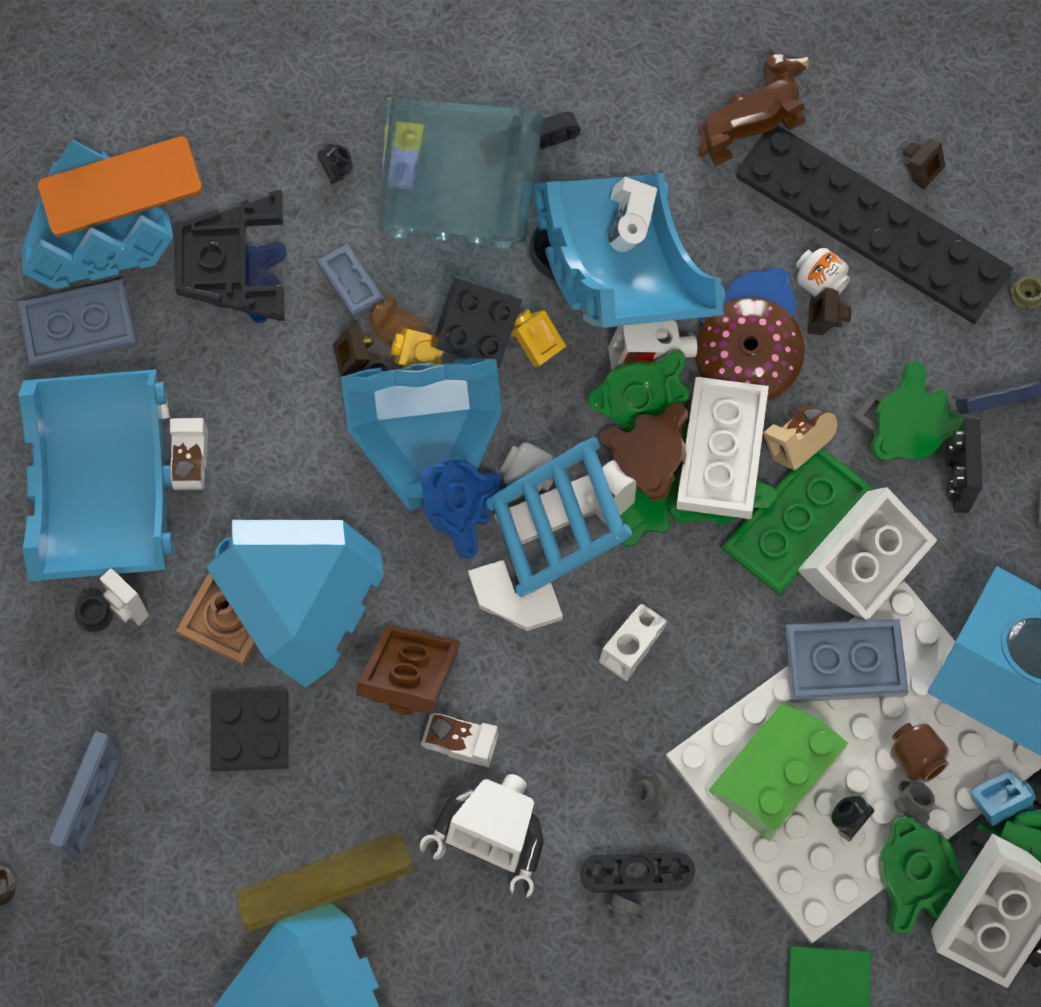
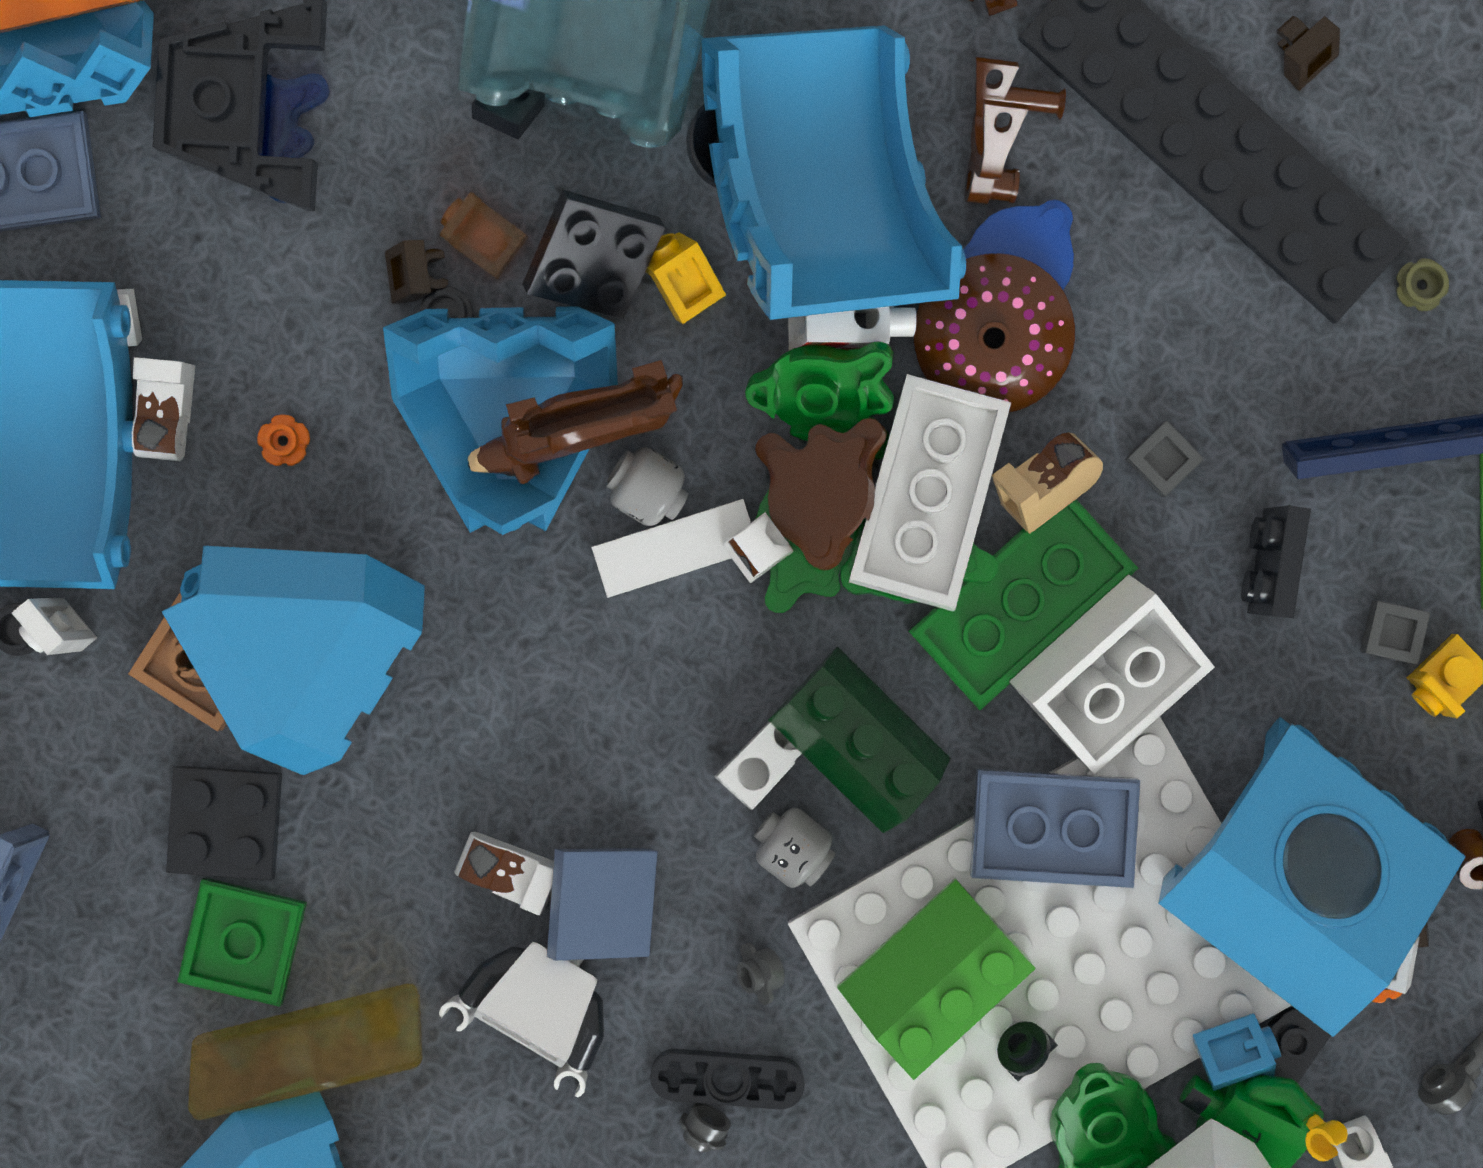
camera: 10 degrees right, 20 degrees up
(268, 815) = (241, 942): none -> green tile
(277, 477) = (293, 451): none -> orange plate
(350, 281) = (418, 154): sand blue plate -> none
(408, 249) = (513, 117): none -> black plate
(408, 670) = (442, 778): reddish brown plate -> none
(414, 348) = (499, 281): yellow bracket -> none
(457, 501) = (536, 528): blue tile -> none
(478, 422) = (577, 422): none -> reddish brown animal
(497, 596) = (583, 667): white tile -> none
(530, 750) = (601, 903): none -> sand blue tile
(587, 549) = (708, 645): dark azure bar -> none
(633, 213) = (848, 101): white leg -> none
(663, 698) = (794, 847): none -> light grey head
(697, 617) = (861, 741): none -> dark green slope
(728, 226) = (990, 144): none -> reddish brown piece
(821, 271) = (1121, 221): white head -> none
(826, 312) = (1116, 286): dark brown tile -> none
(913, 420) = (1216, 474): green tile -> none
(915, 800) = (1126, 1038): dark grey plate -> none
(919, 752) = (1133, 978): reddish brown head -> none

